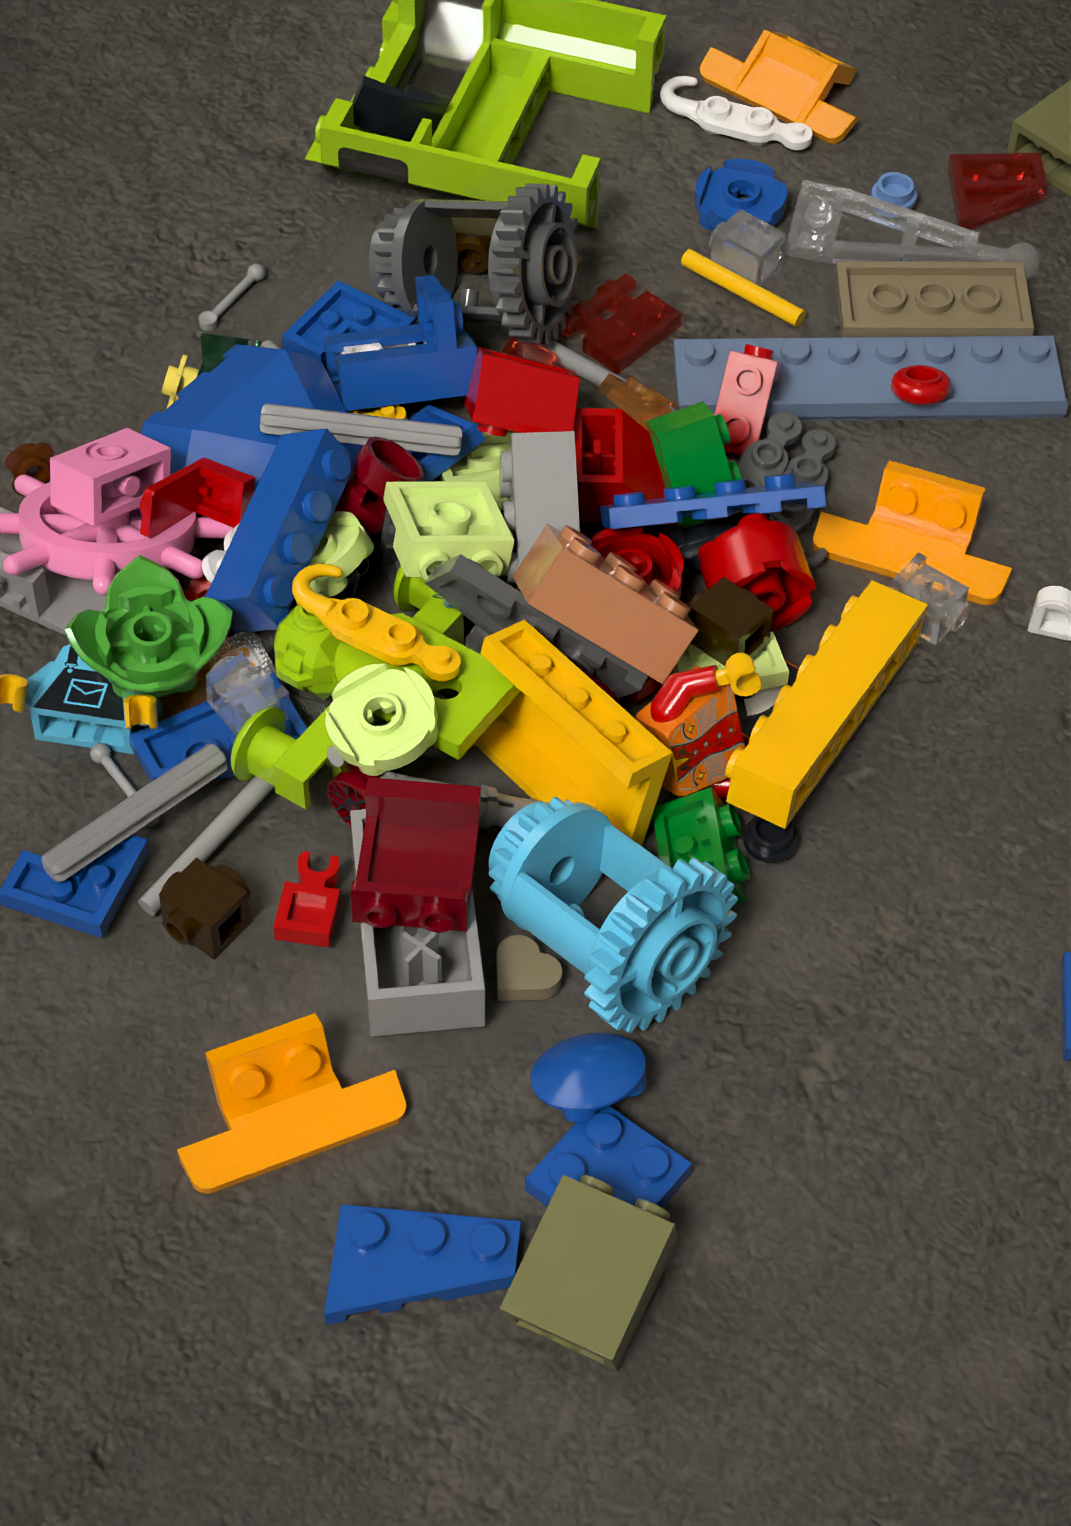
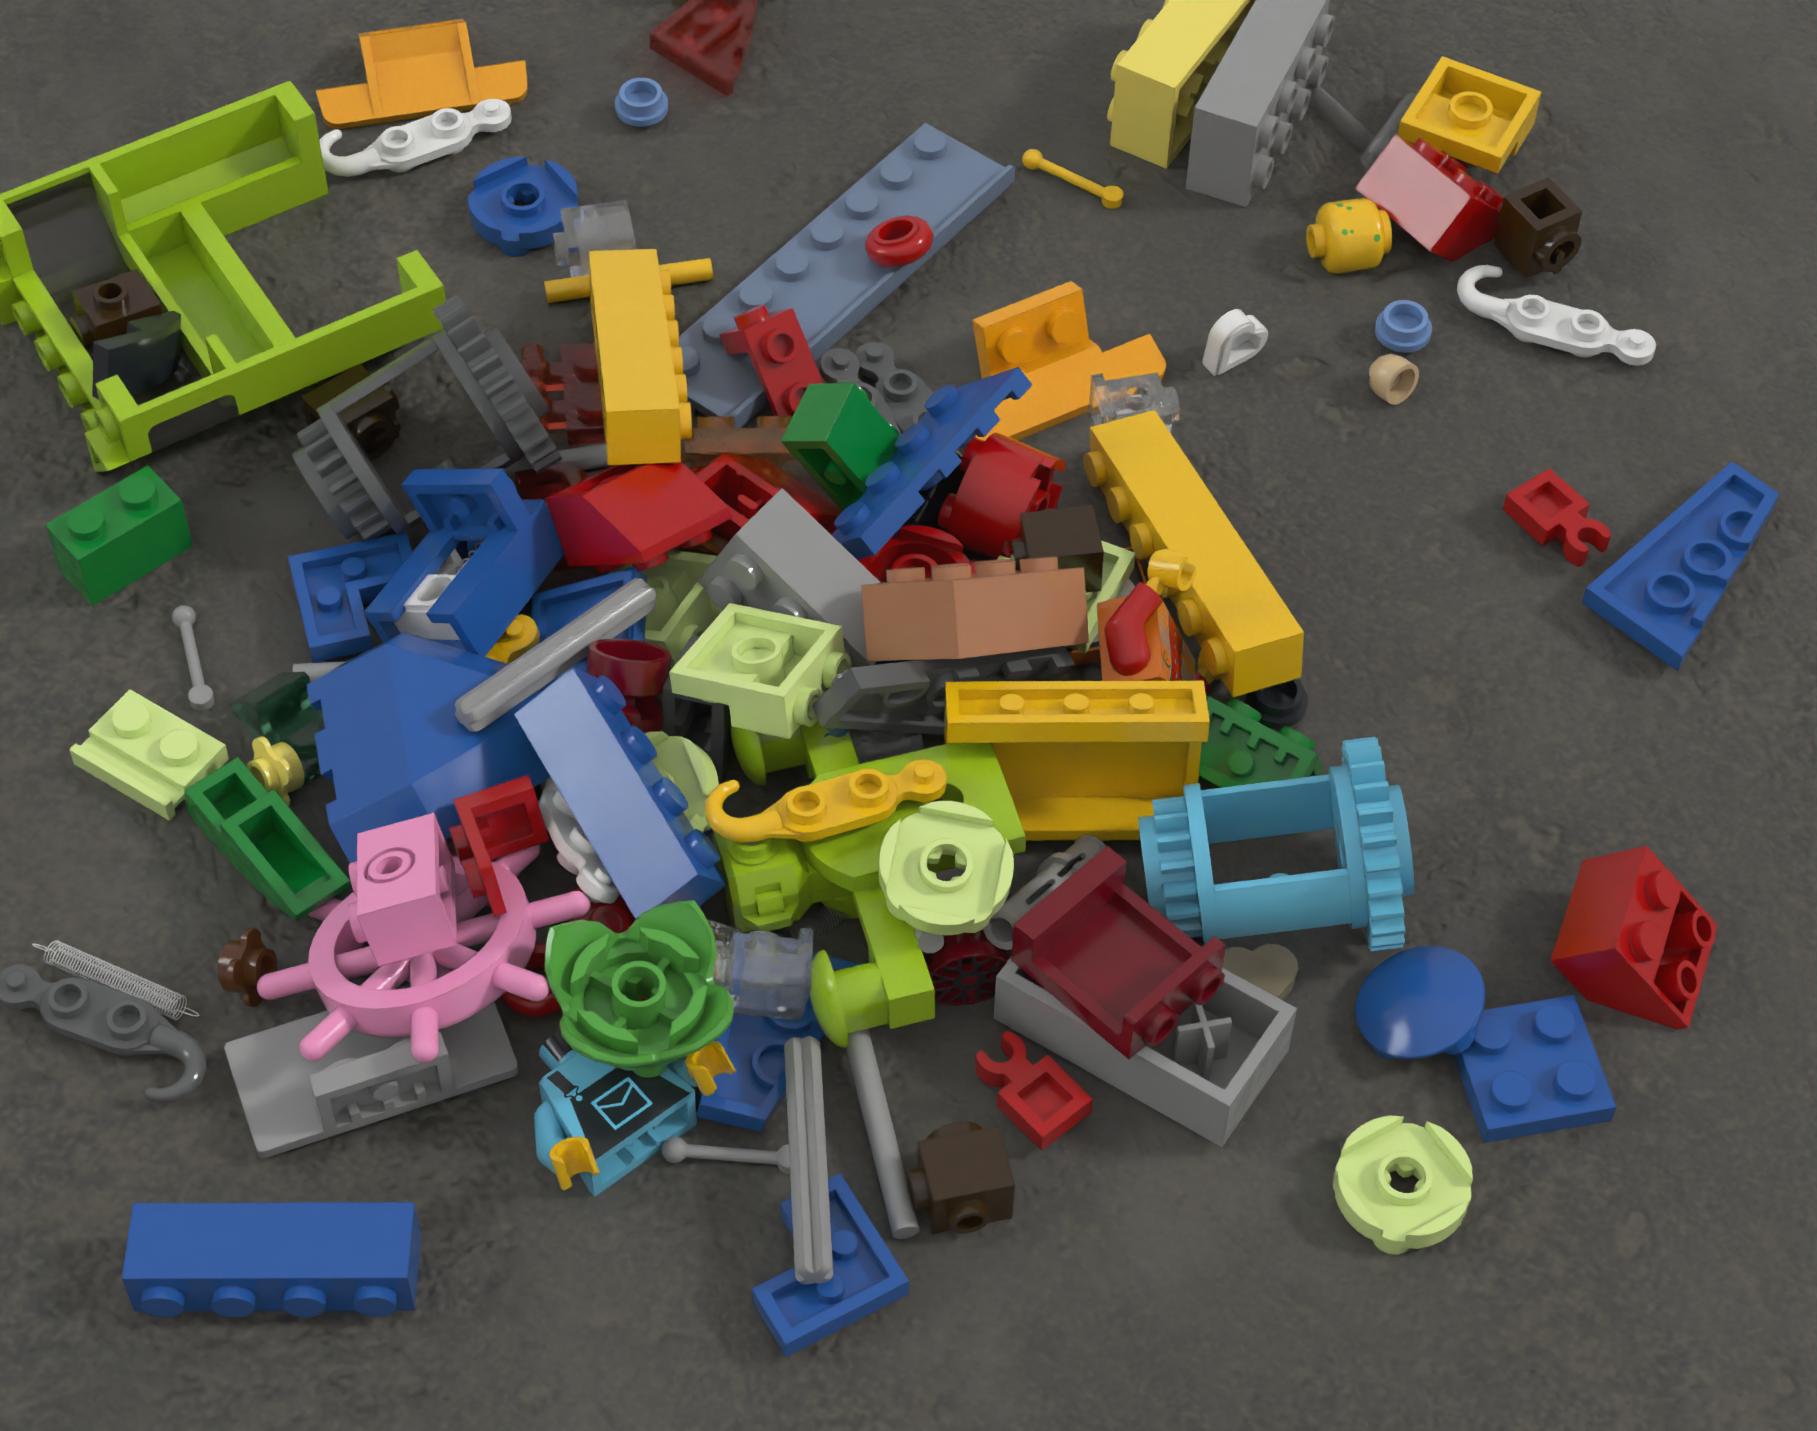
camera: 50 degrees left, 0 degrees up
(128, 394) = (264, 840): none -> green slope
(143, 326) = (148, 753): none -> yellowish green plate
(273, 200) = (119, 535): none -> green brick
(284, 1106) = (1249, 1269): light orange plate -> none
(414, 1256) = (1493, 1276): blue wing -> none
(425, 72) = (109, 305): none -> dark brown brick
(439, 1186) = (1397, 1218): none -> yellowish green plate
(590, 1270) = (1641, 1139): olive brick -> none
(646, 314) = (638, 358): none -> yellow brick
(776, 1173) = (1635, 938): none -> red slope
(819, 216) = (617, 174): clear plate -> none
(932, 299) = (796, 168): dark tan plate -> none

